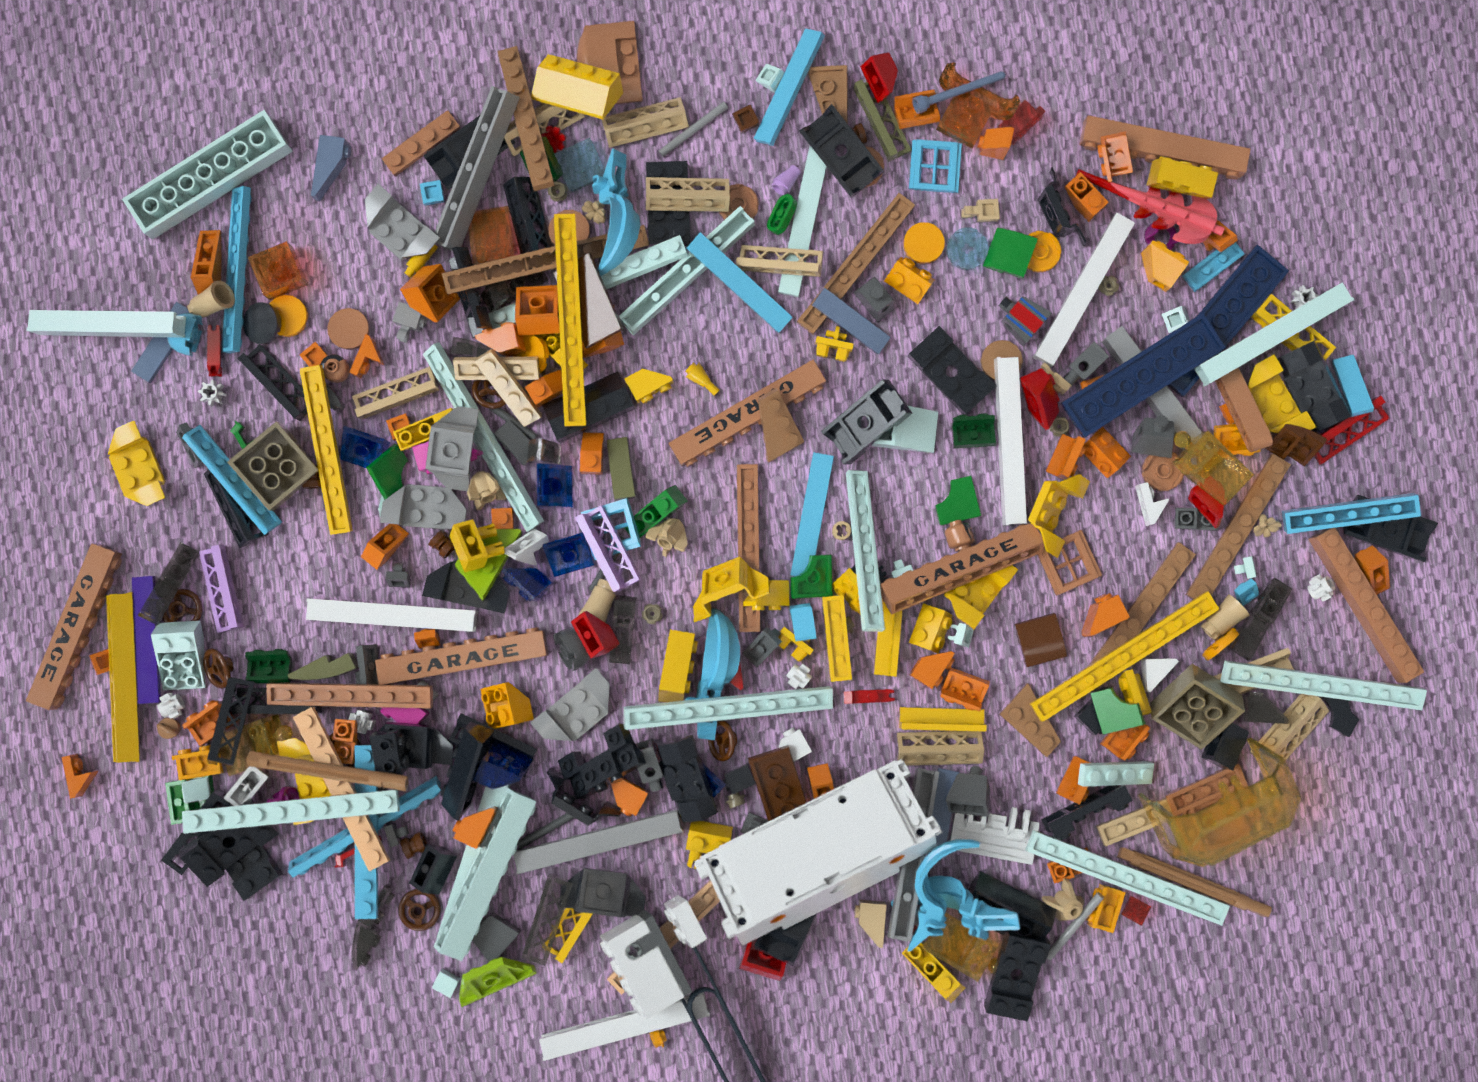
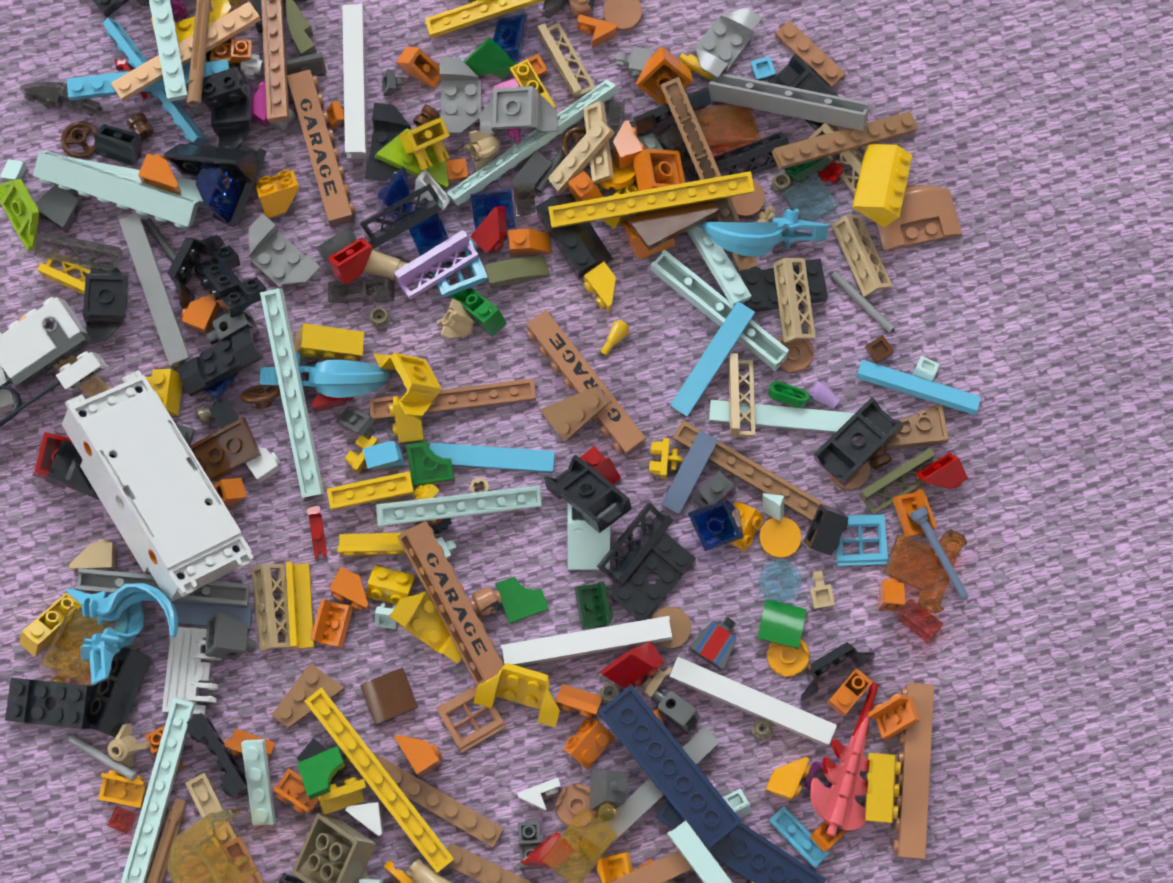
camera: 85 degrees right, 10 degrees down
(394, 834) = (149, 108): dark grey tile -> none
(557, 574) = (407, 221): none -> black fence
(578, 488) = (492, 231): none -> red slope
(799, 676) = (330, 460): white gear -> none
(833, 408) = (601, 464): none -> red slope
(894, 244) = (773, 505): none -> light aqua slope
(911, 299) = (717, 524): none -> clear blue slope
(921, 380) = (641, 547): none -> black fence
(925, 195) = (826, 529): none -> black brick

